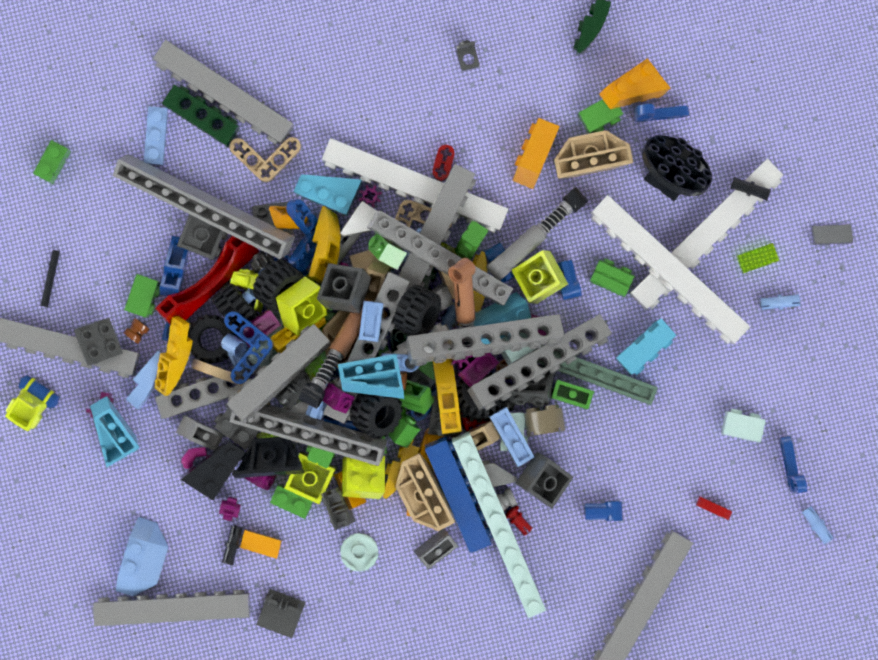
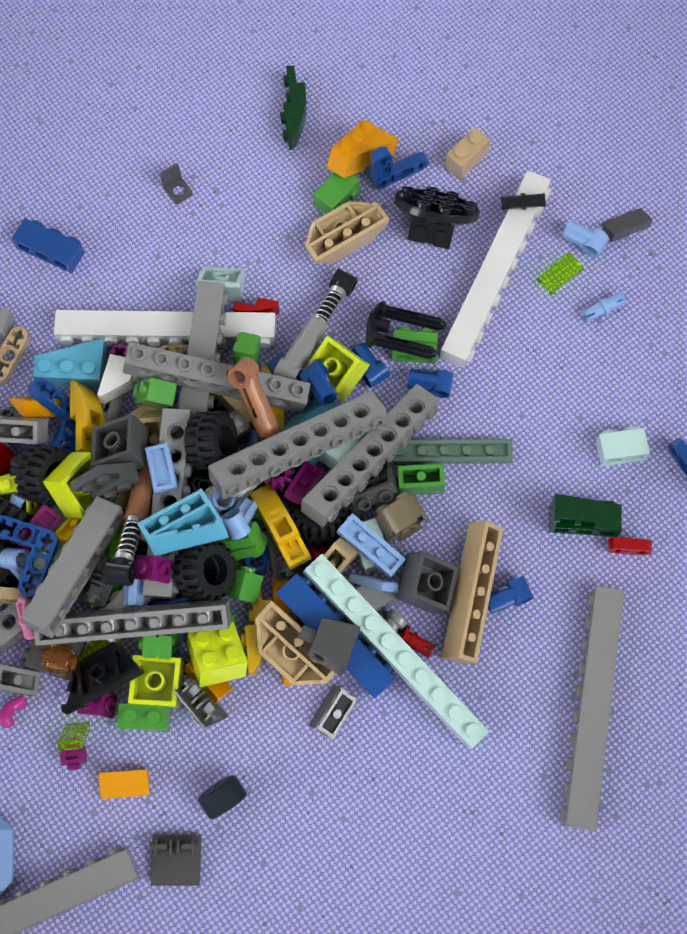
camera: 20 degrees left, 15 degrees down
(214, 470) = (39, 715): black wedge -> none
(229, 389) = (27, 632): none -> bright pink axle
(232, 544) = (90, 798): black pin -> none
(235, 495) = (74, 735): none -> clear neon green tile
(242, 436) = (59, 659): none -> clear orange head
(326, 316) = (106, 480): none -> dark grey plate
(330, 582) = (222, 796): none -> black wheel
(342, 71) = (48, 245): none -> blue brick
(359, 552) = (245, 750): light aqua tile -> none
(416, 382) = (239, 517): none -> light blue piece
(438, 161) = (183, 296): red beam -> none
(452, 505) = (331, 643): none -> dark grey torso
(475, 159) = (231, 277): none -> light aqua slope
(499, 198) = (262, 306): none -> red slope
(503, 464) = (374, 583): none -> light blue tile
(520, 282) = (320, 384): none -> blue piece
(535, 152) = (282, 251): light orange wedge -> none
(576, 499) = (472, 593): none -> tan brick
(587, 249) = (377, 323): none -> black piece
(615, 315) = (435, 382): none -> blue piece
(646, 347) = (481, 400): medium azure wedge -> none
(670, 270) = (474, 309): white brick -> none
(688, 472) = (584, 516): none -> dark green wedge
(724, 120) = (467, 153): none -> tan brick
(794, 239) = (589, 240): none -> light blue piece

